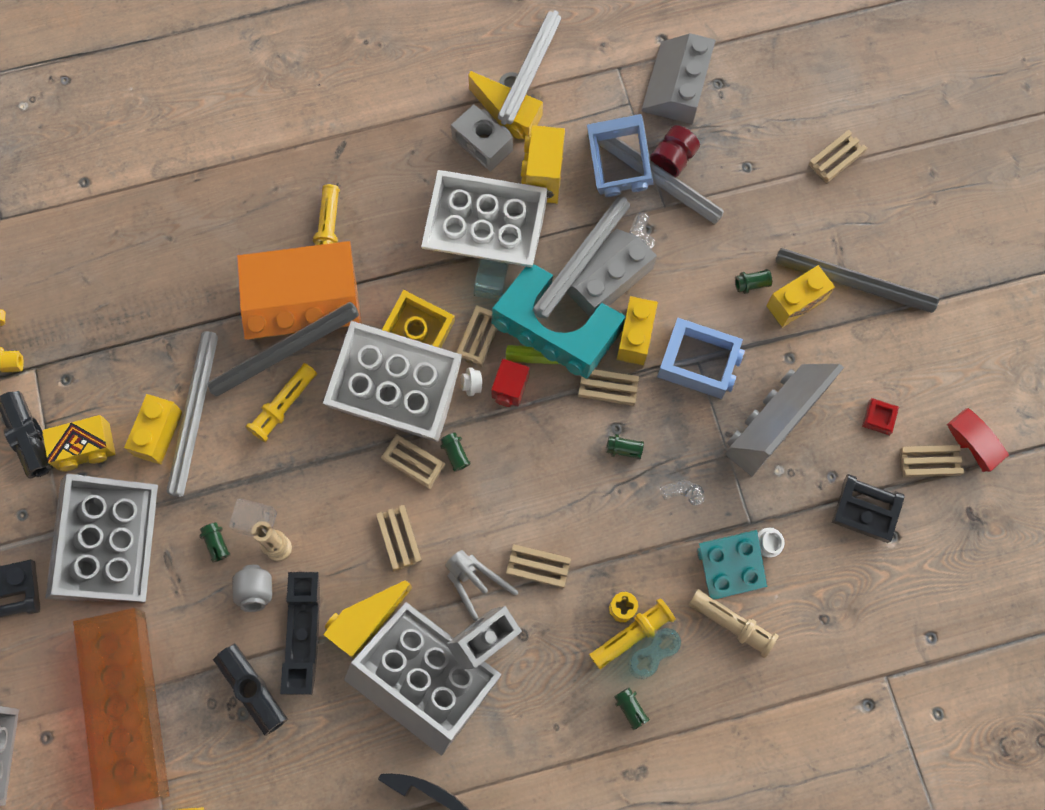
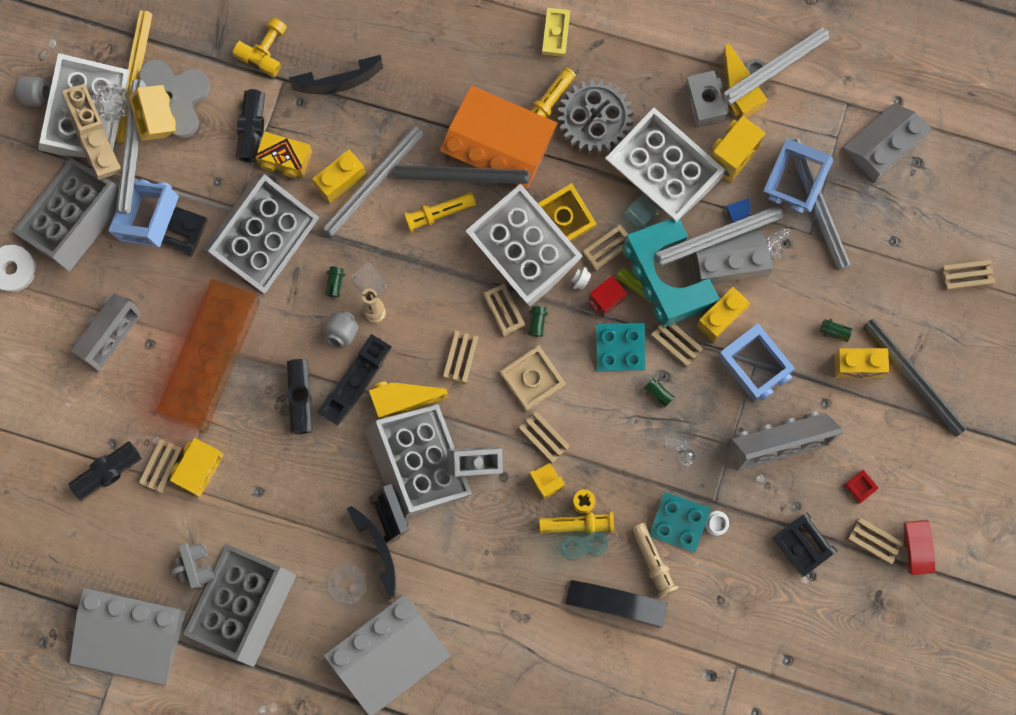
camera: 35 degrees right, 5 degrees up
(94, 335) = (368, 68): none -> black slope
(292, 159) = (556, 32): none -> light yellow plate
(358, 214) = (578, 105): none -> light grey gear
(428, 753) = (390, 514): none -> black plate
(462, 567) = (491, 405): light grey plant -> none
(487, 513) = (532, 378): none -> tan tile
(556, 425) = (620, 346): none -> teal hinge
(570, 610) = (547, 481): none -> yellow panel
(583, 223) = (739, 210): none -> blue tile
(631, 708) = (545, 570): dark green pin -> none
(675, 150) = (846, 195): dark red wheel -> none
(724, 692) = (616, 603): none -> black slope

